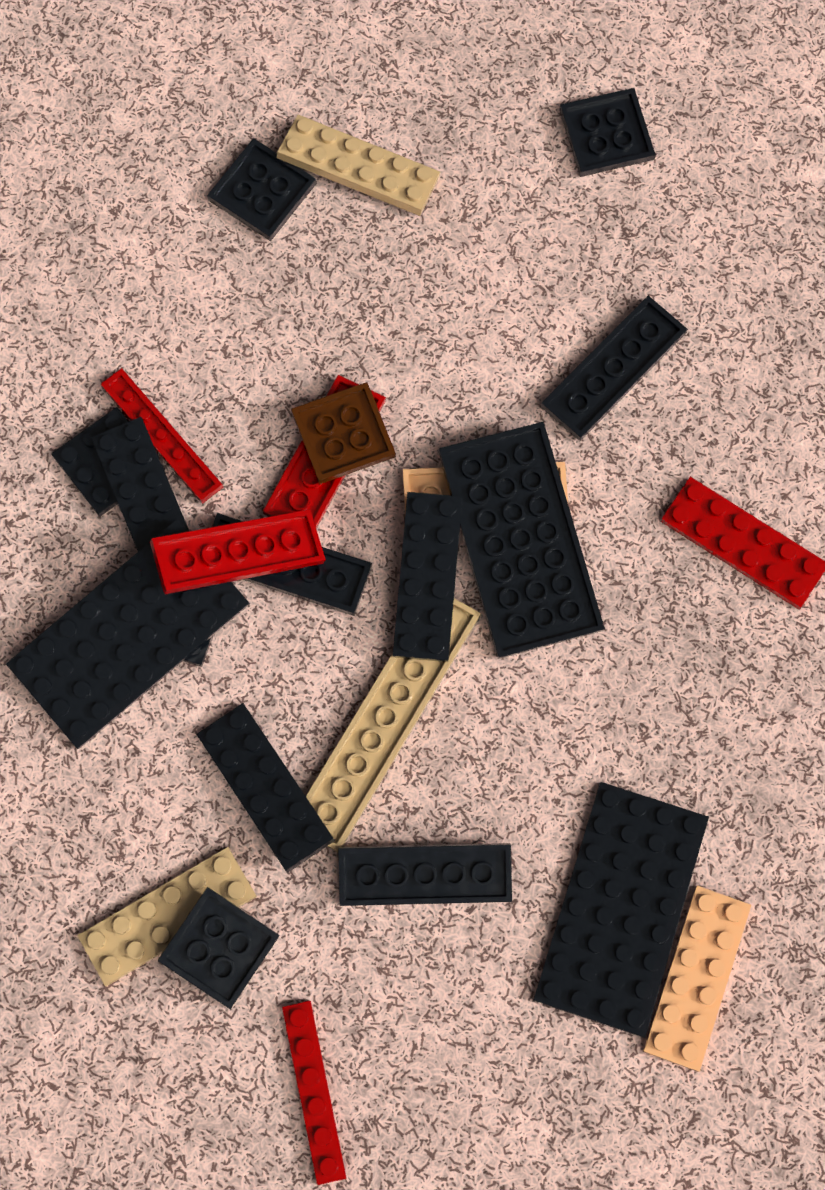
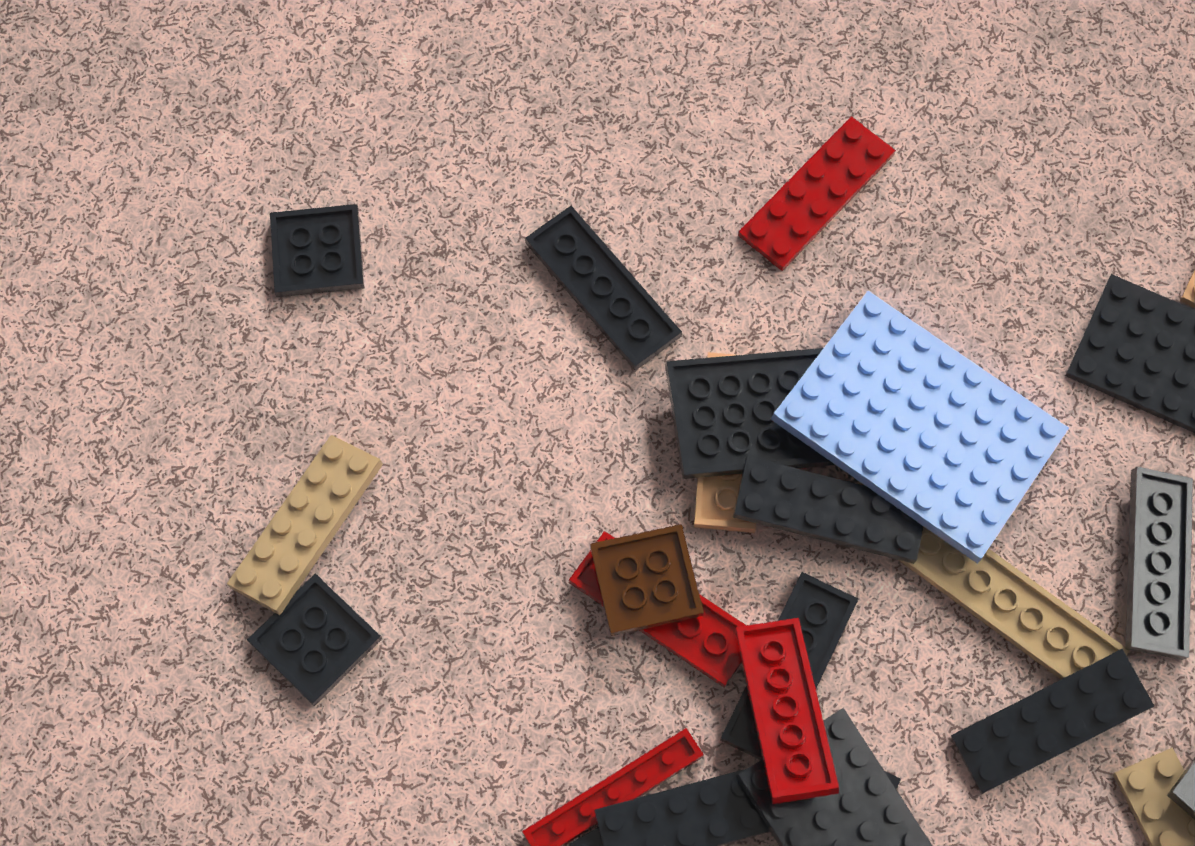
camera: 80 degrees left, 5 degrees down
(521, 648) = (921, 425): none -> light blue plate

